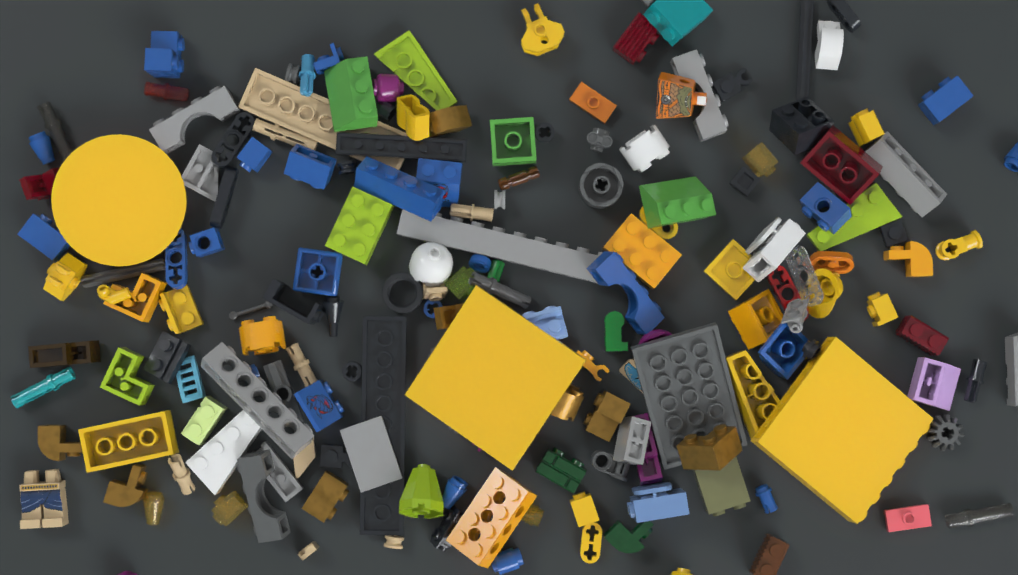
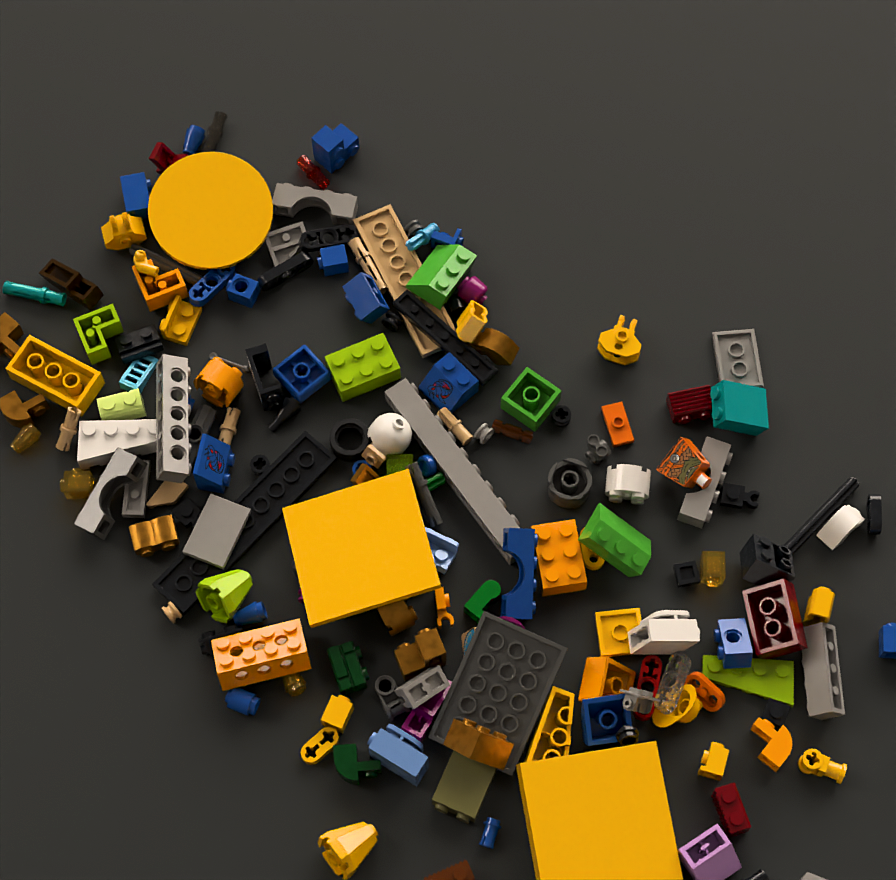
camera: 45 degrees right, 20 degrees down
(308, 550) = (105, 564): tan tile -> none
(398, 188) = (416, 362): blue brick -> none
(415, 69) = (504, 295): lime wing -> none

